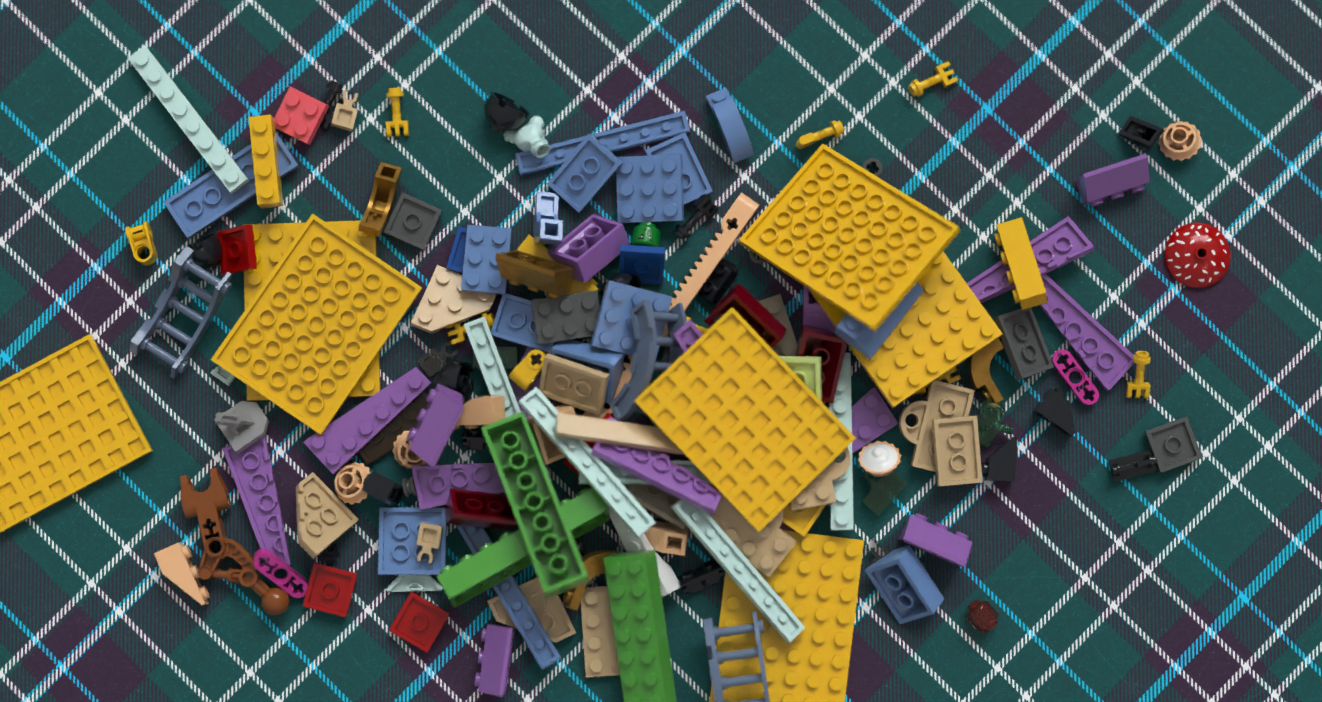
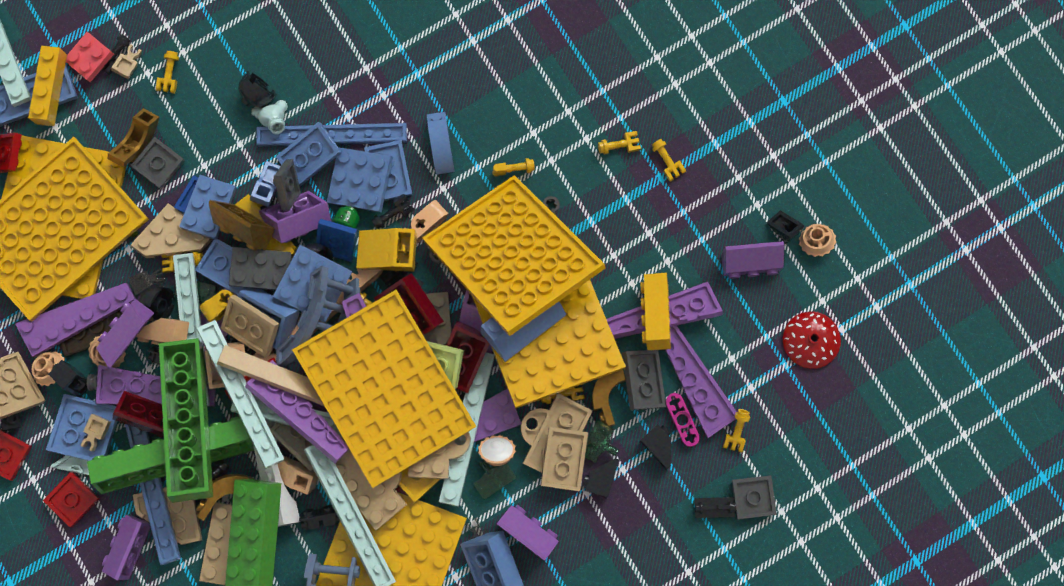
camera: 20 degrees right, 5 degrees down
(573, 214) = (287, 184): none -> dark grey plate
(704, 263) = (387, 249): none -> yellow slope
(998, 94) = (672, 167): none -> yellow hinge

